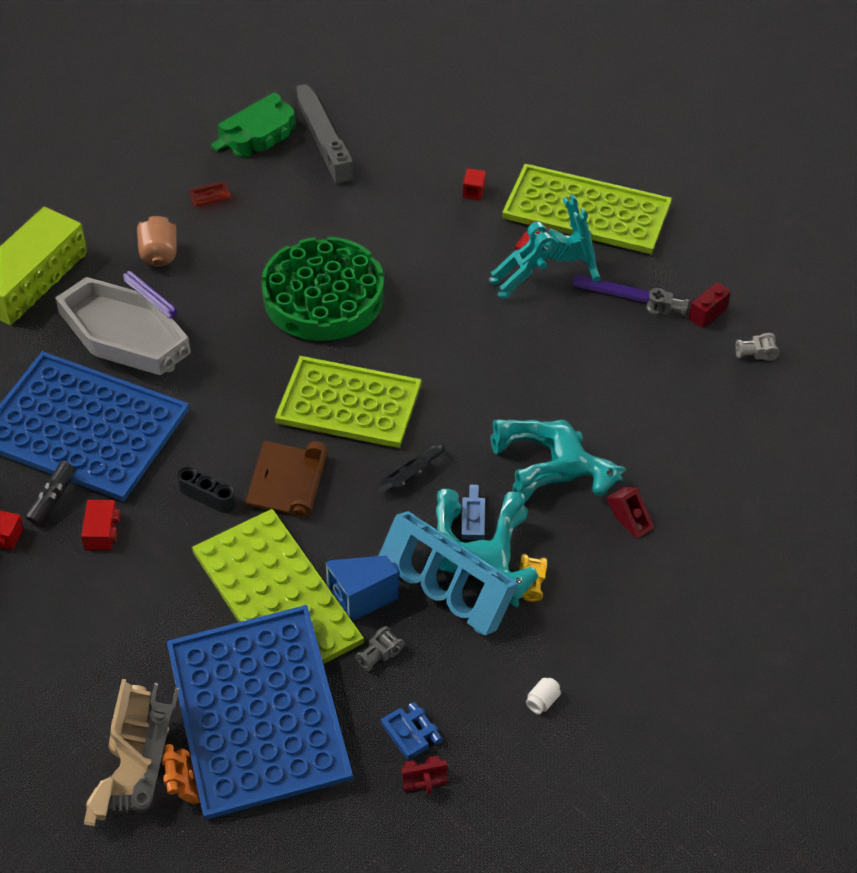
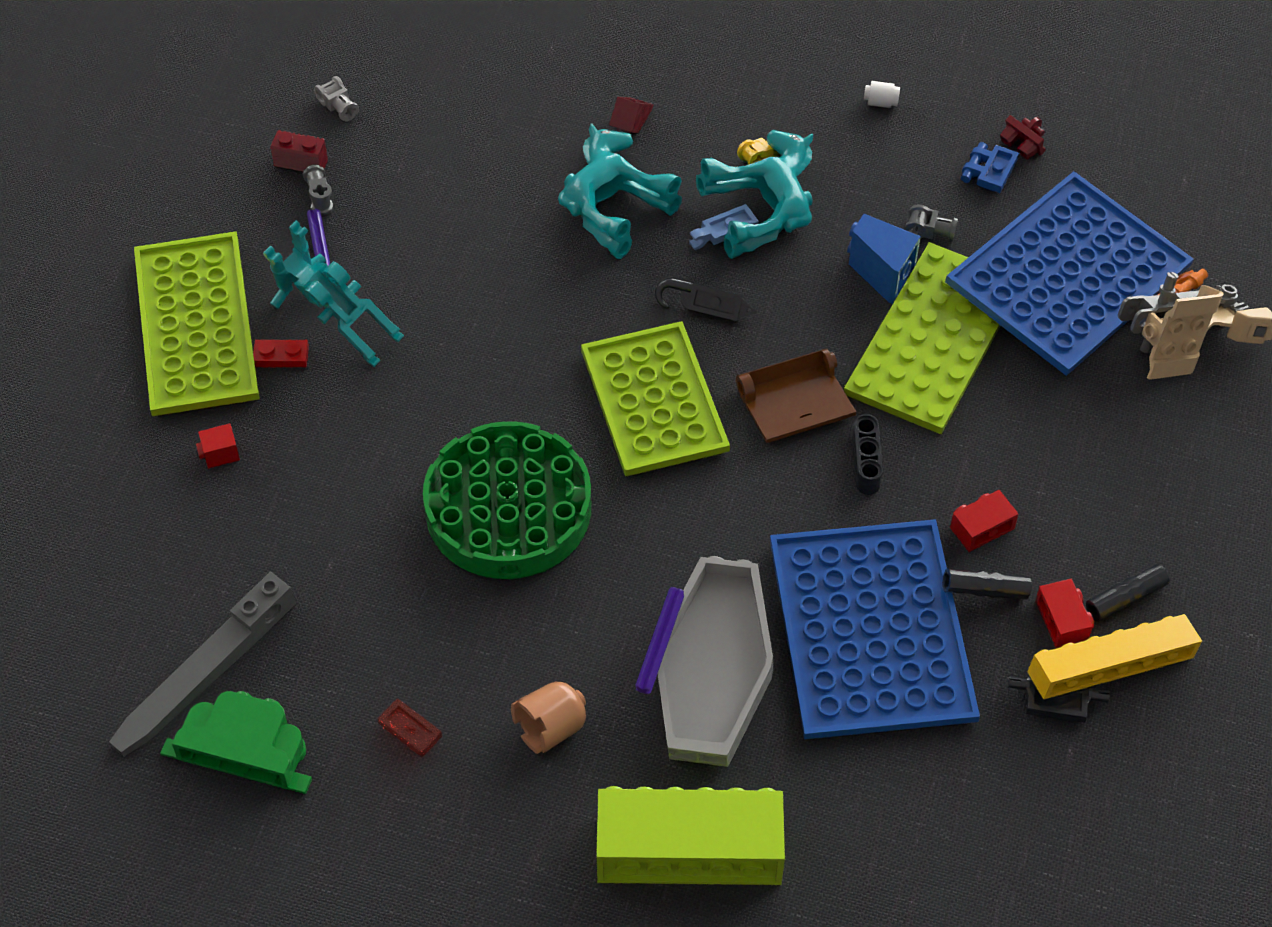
camera: 120 degrees left, 5 degrees up
(495, 593) = (821, 197): dark azure fence -> none

